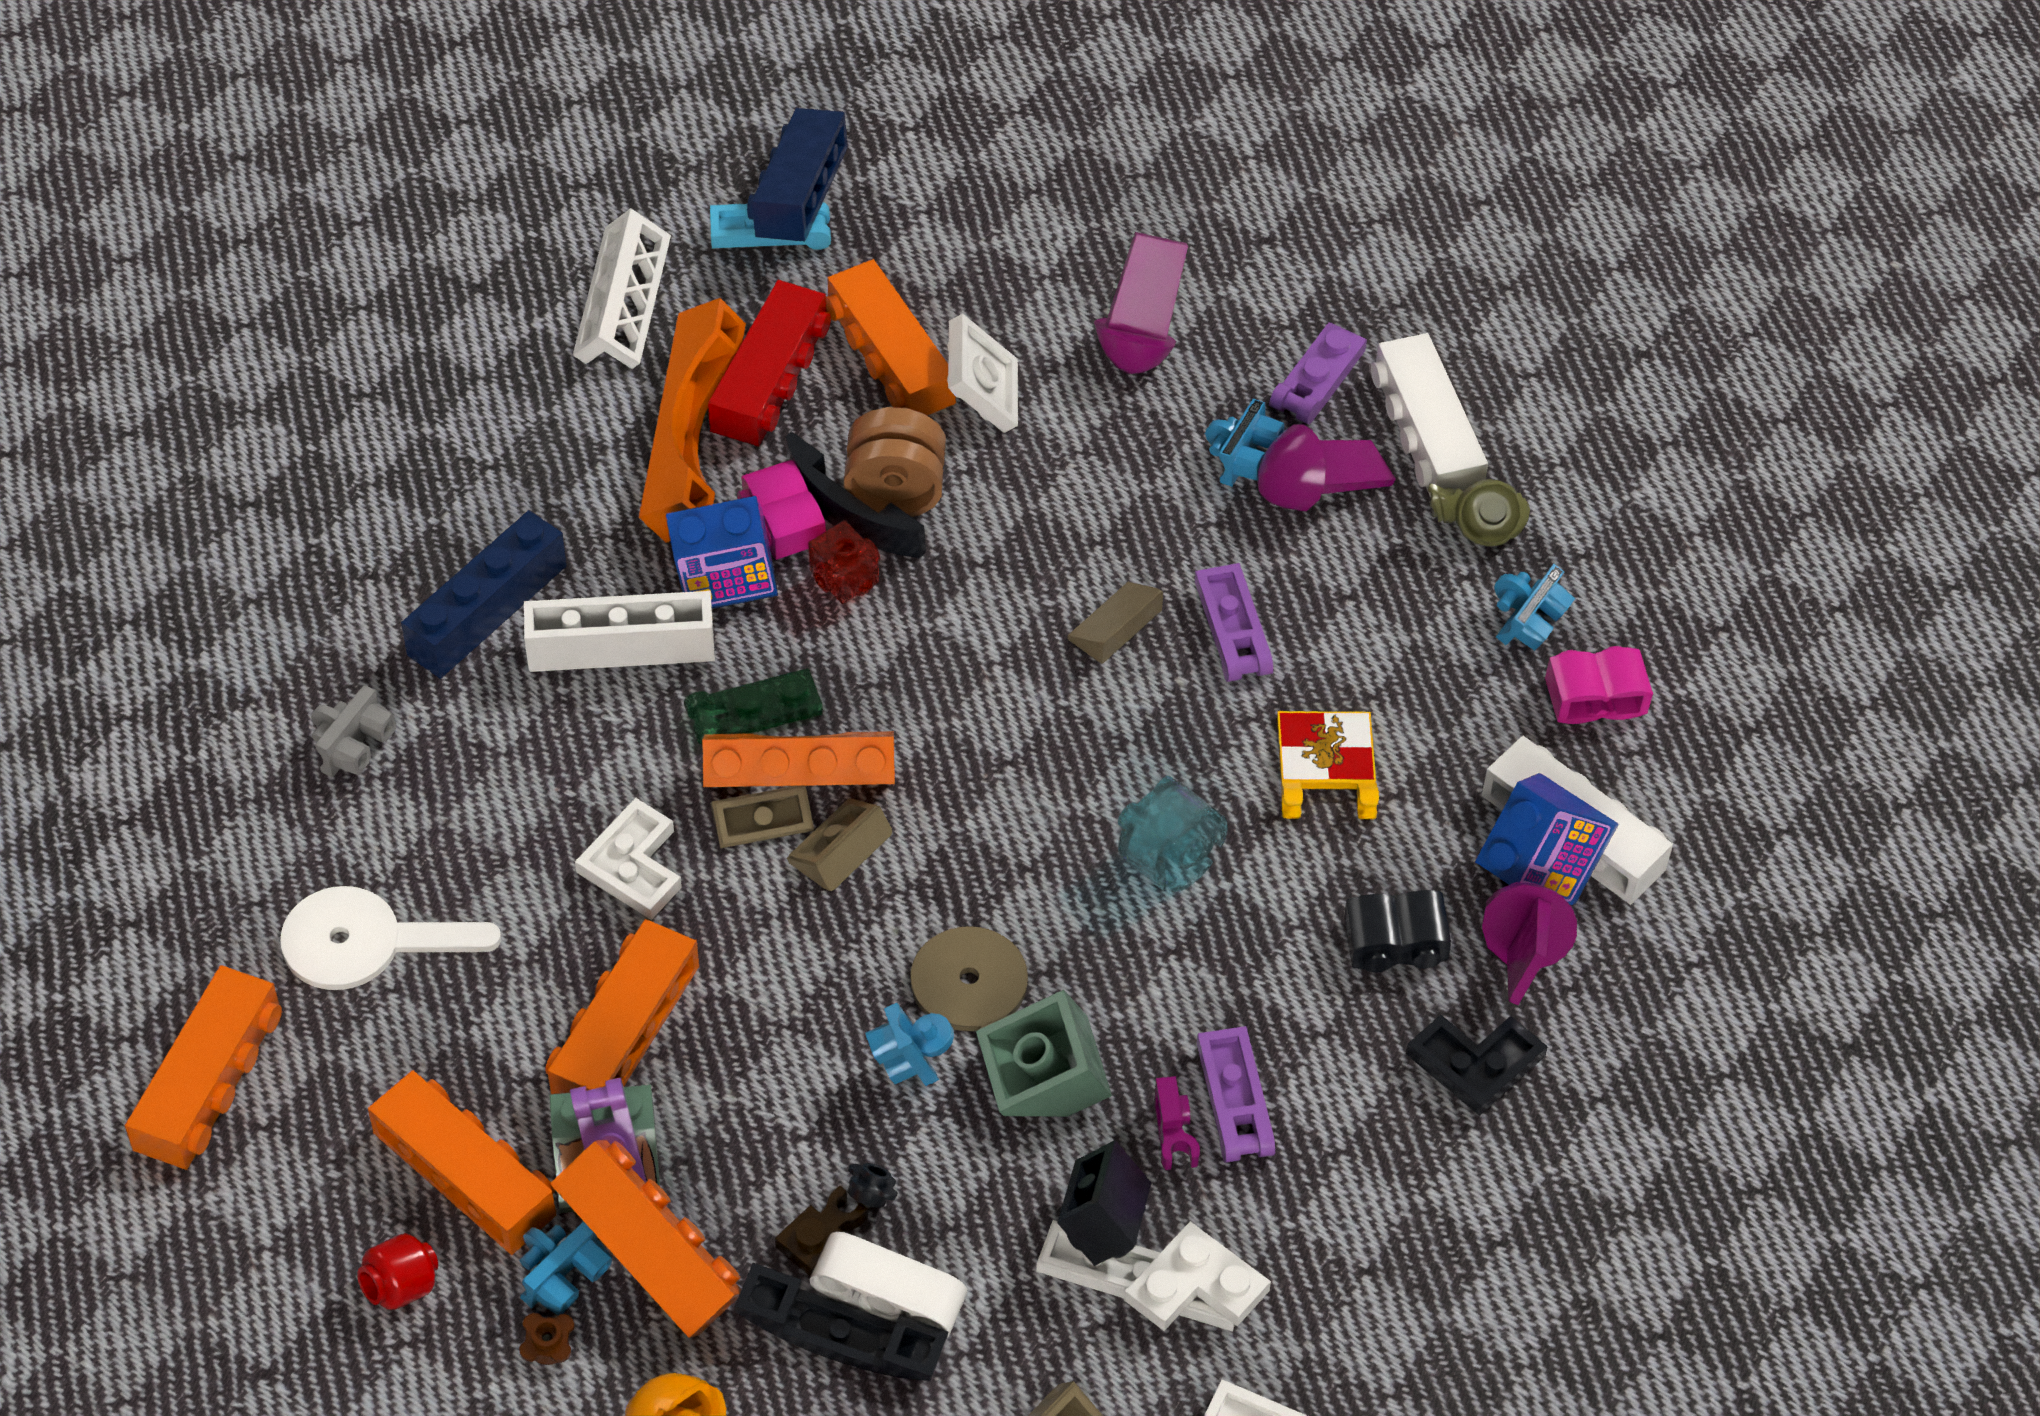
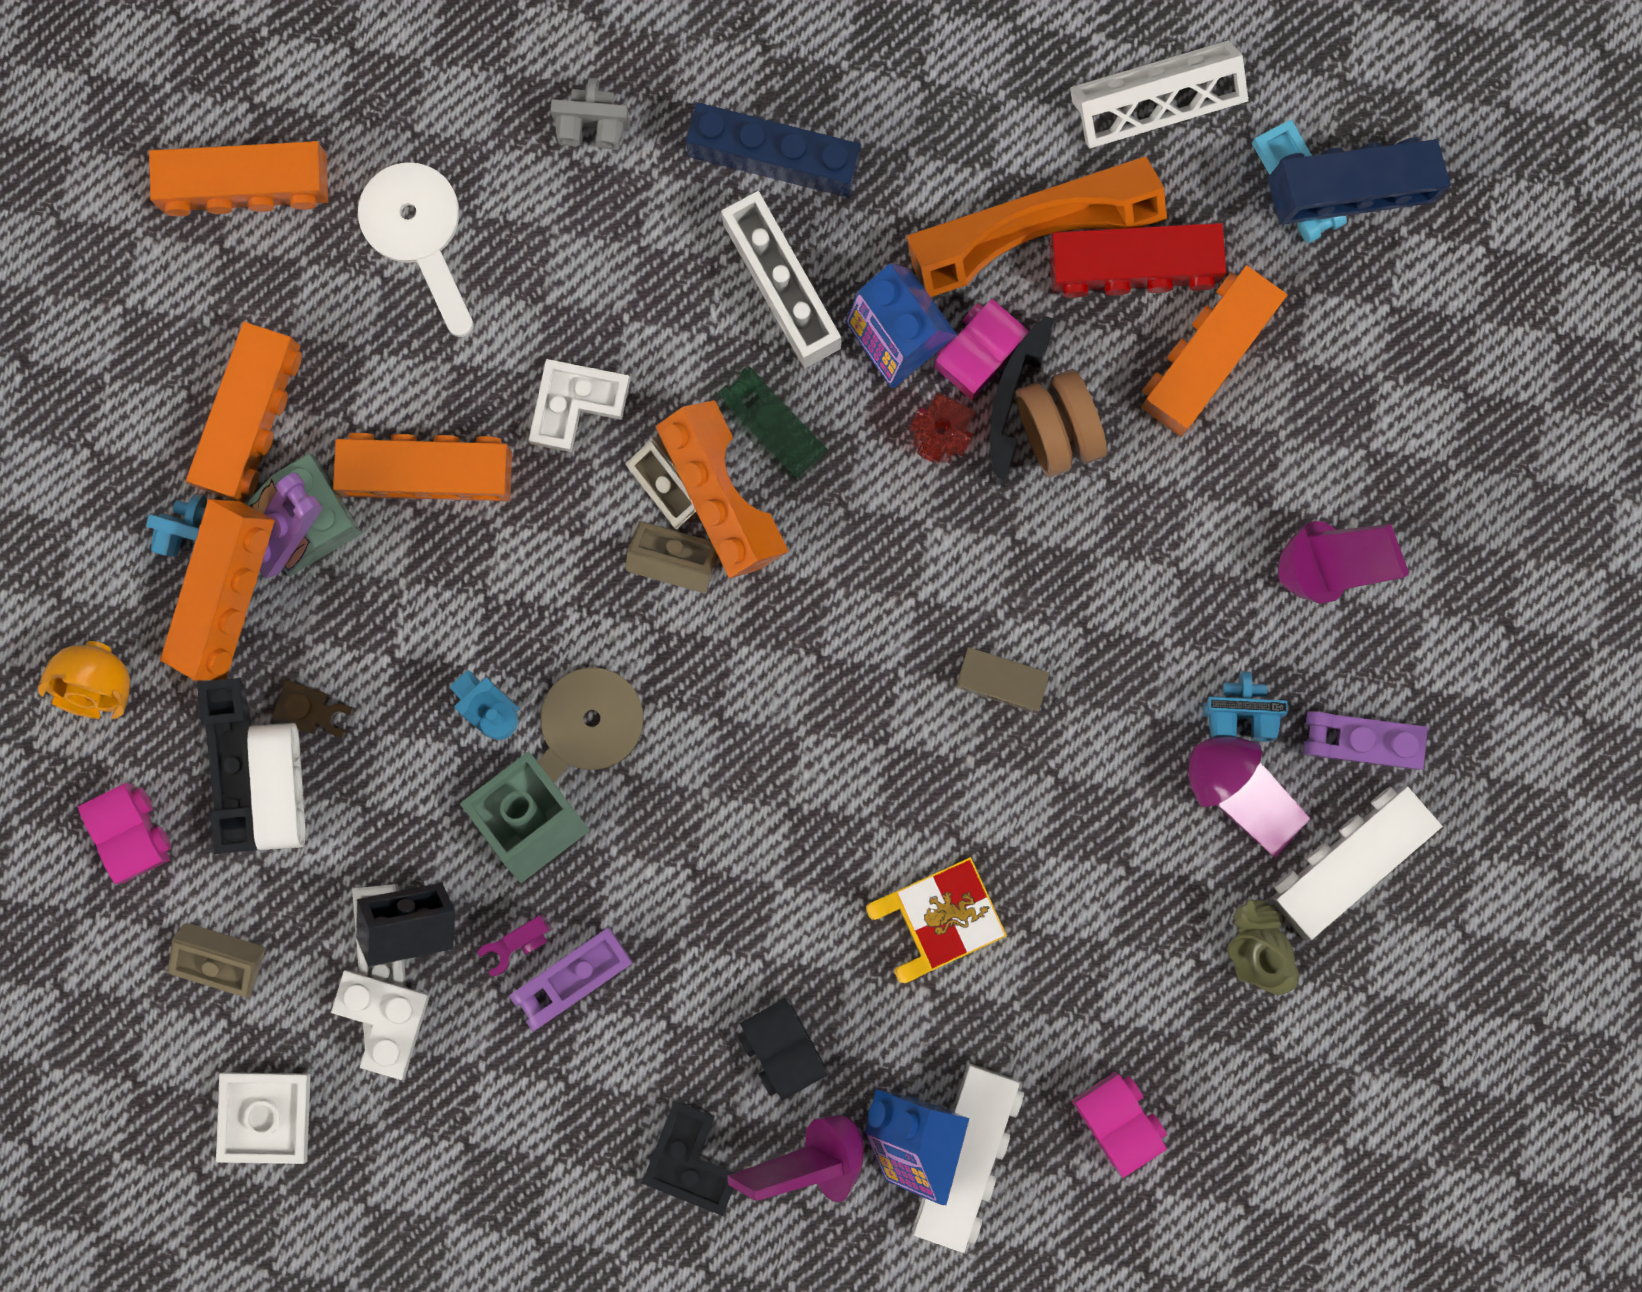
camera: 70 degrees right, 30 degrees up
(397, 1271) = (131, 415): red head -> none
(546, 1352) = (142, 554): reddish brown plate -> none
(871, 1185) = (351, 732): black plate -> none
(983, 373) = (1203, 450): white plate -> none
(1170, 835) = (781, 826): clear light blue brick -> none
(1233, 621) = (1045, 781): medium lavender plate -> none
(1544, 594) = (1181, 1028): dark azure hips -> none

